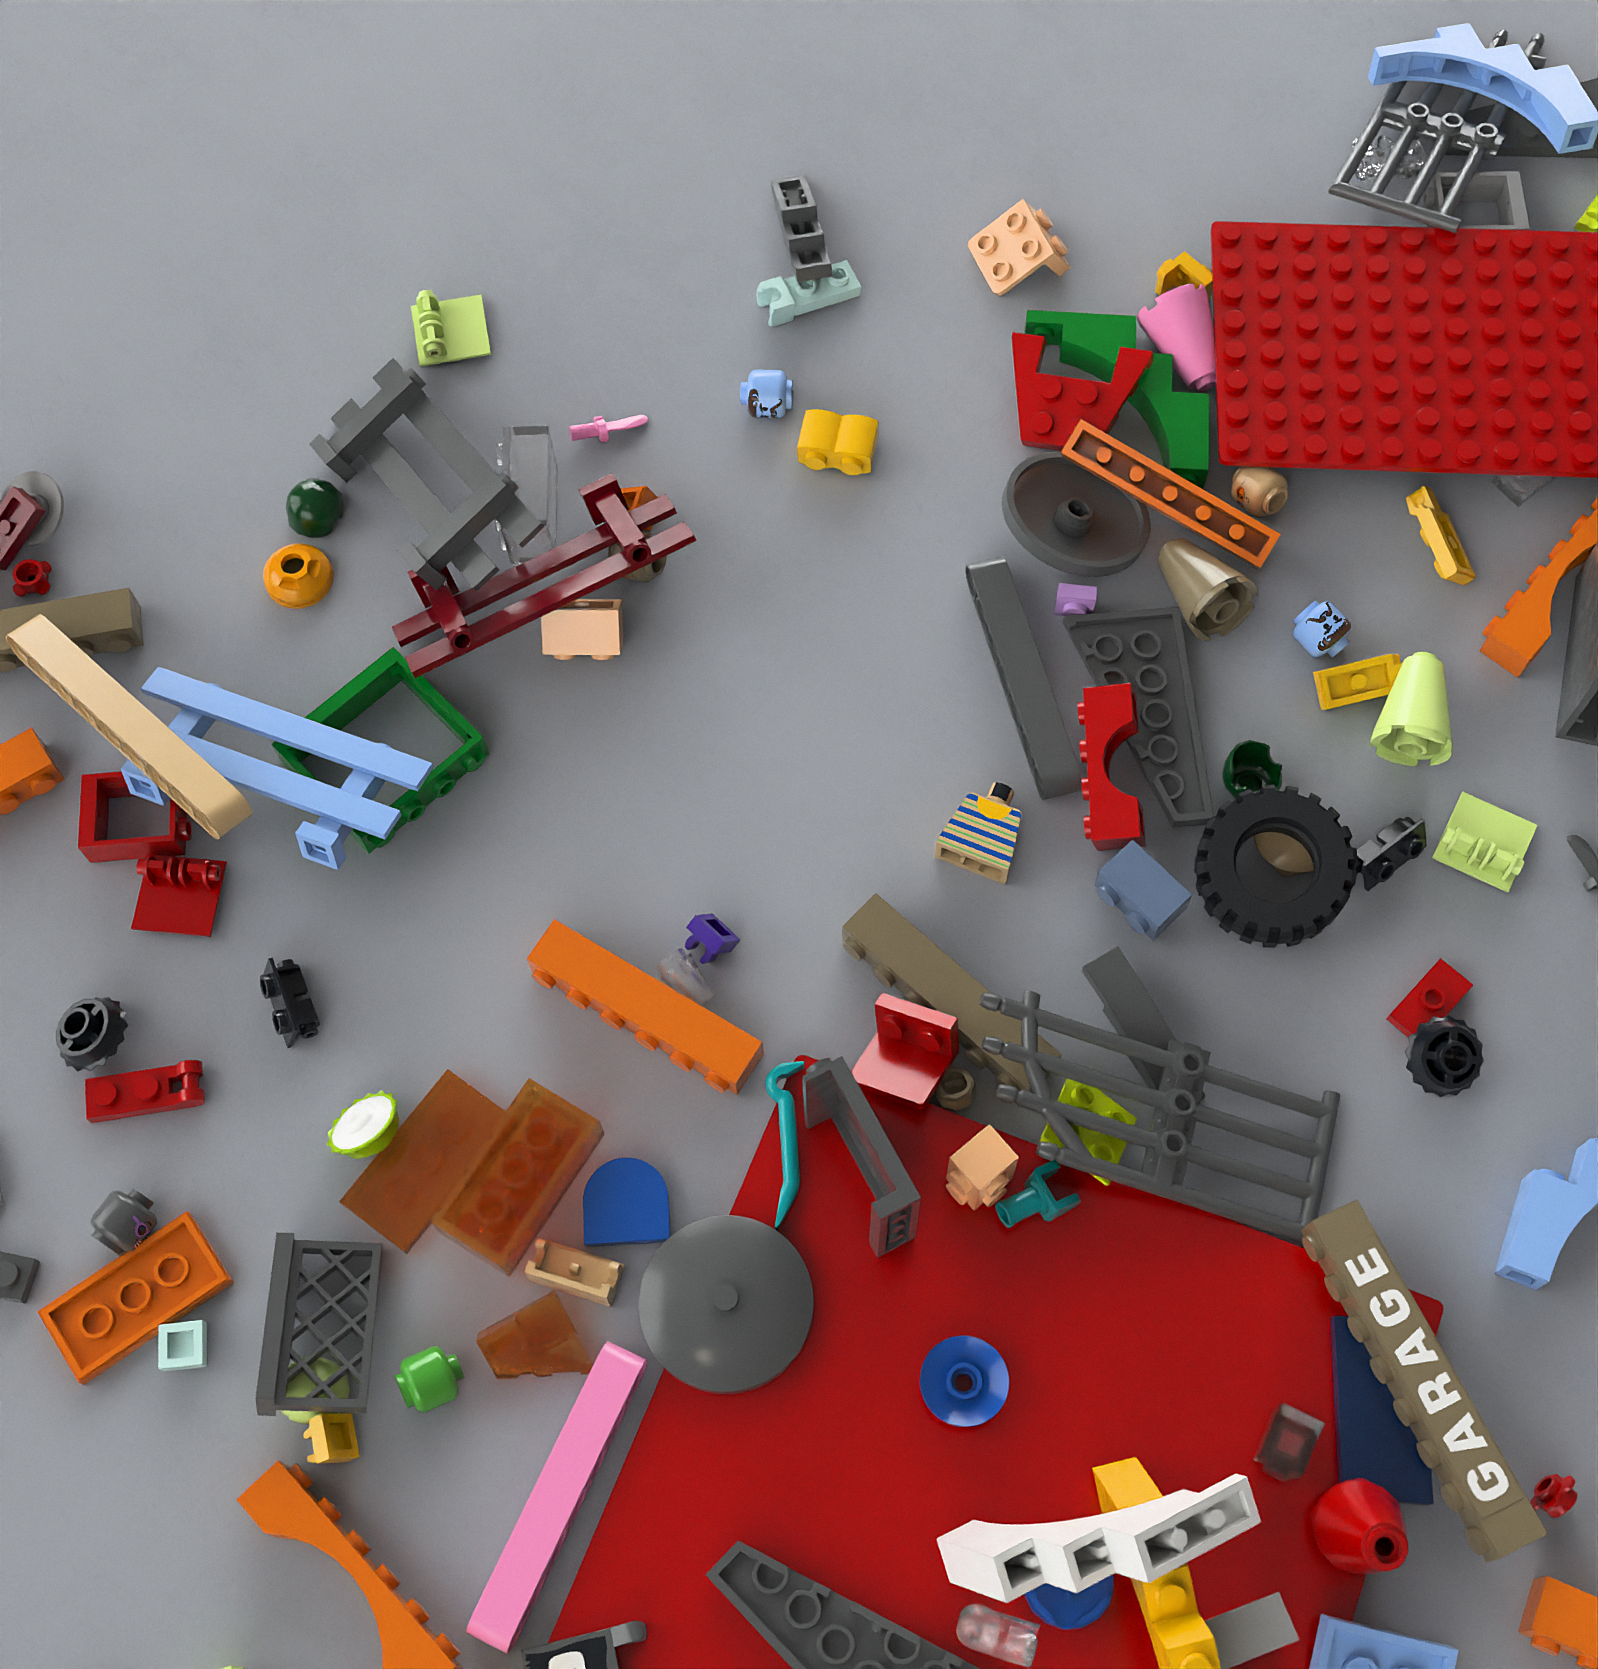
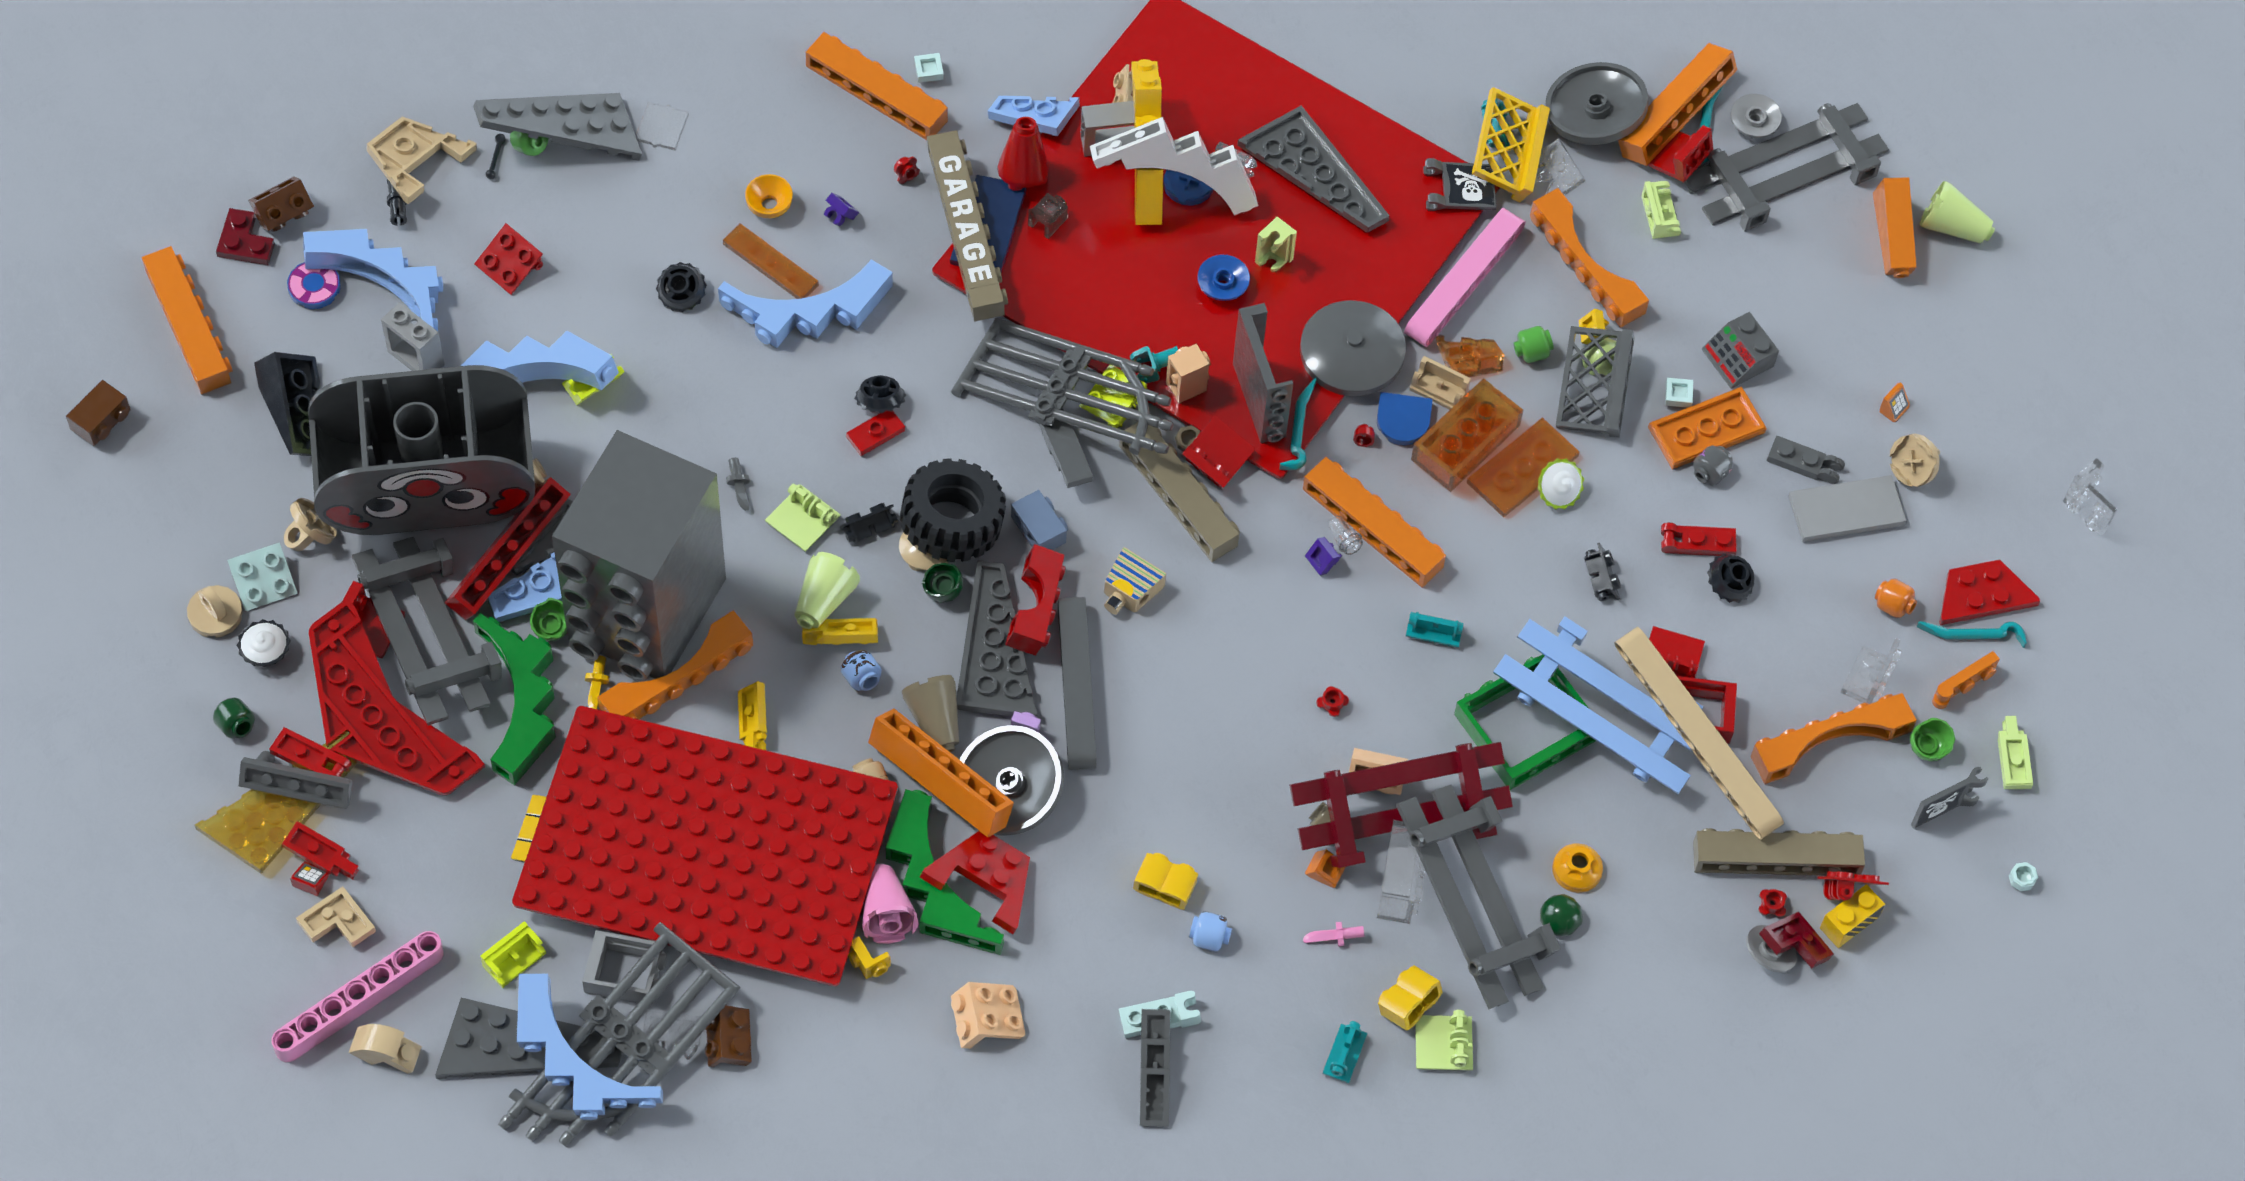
camera: 175 degrees left, 5 degrees down
(79, 1448) = (1741, 350): none -> dark grey slope
(499, 360) = (1409, 997): none -> yellow brick
(531, 864) = (1434, 629): none -> teal hinge
(572, 292) = (1345, 1052): none -> teal hinge
(657, 718) = (1336, 694): none -> red plate
(683, 1158) = (1367, 438): none -> red hinge
(886, 1458) = (1276, 243): none -> yellowish green hinge
(1315, 165) = (729, 1037): none -> reddish brown bracket

